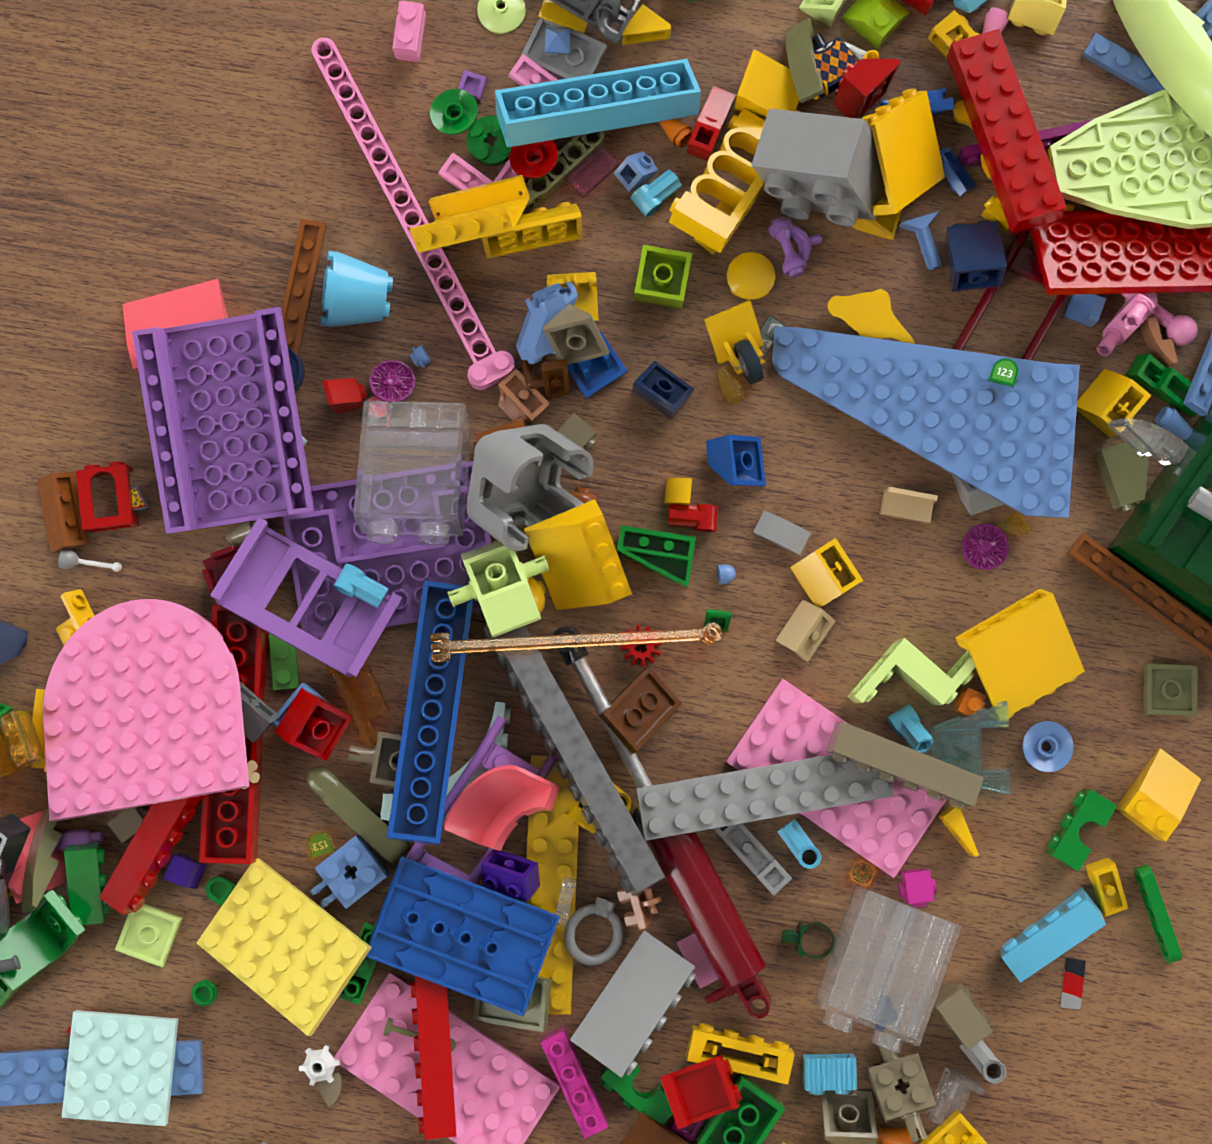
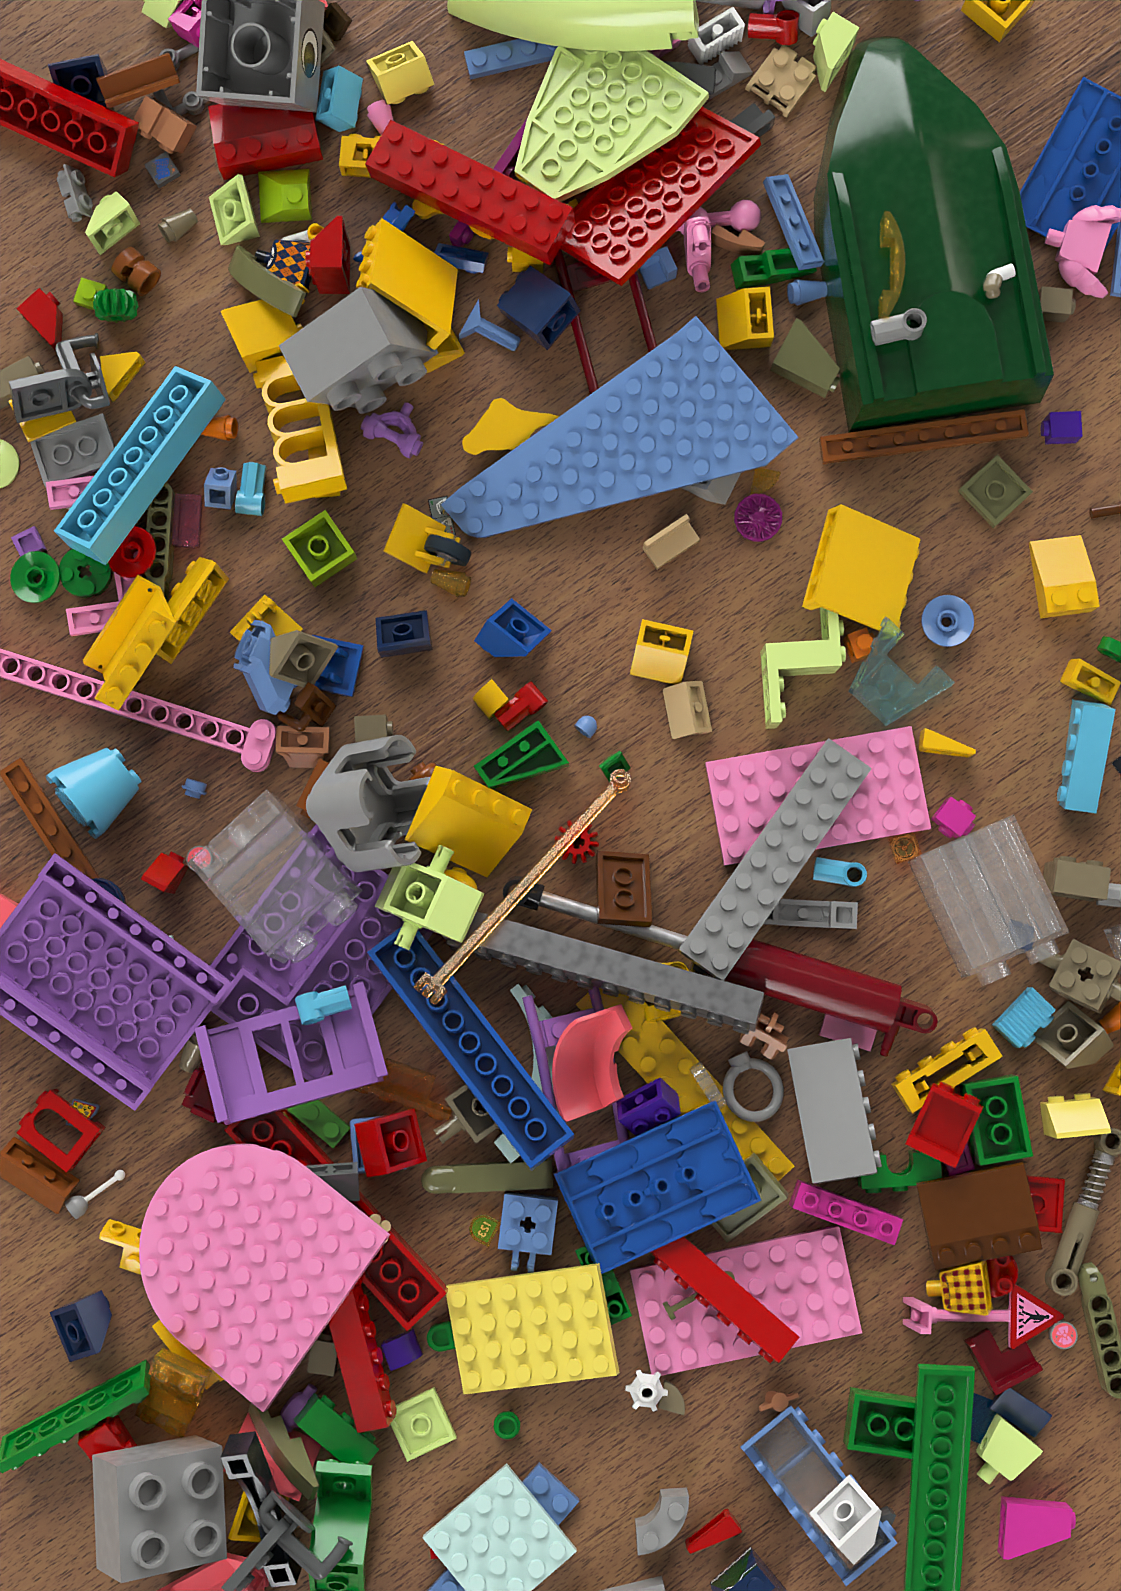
camera: 45 degrees left, 0 degrees up
(392, 381) = (192, 827): magenta wheel -> none
(557, 40) = (61, 446): medium blue slope -> none
(710, 123) = (241, 397): slope -> none
(750, 276) = (385, 483): yellow dish -> none
(782, 533) = (599, 654): light grey slope -> none
(790, 937) = (899, 947): dark green piece -> none
(905, 765) = (857, 737): dark tan brick -> none
(908, 725) = (831, 705): medium azure piece -> none
(1004, 372) = (646, 374): tile -> none
(1066, 844) = (1031, 679): green arch -> none
(1150, 440) = (801, 321): clear slope -> none

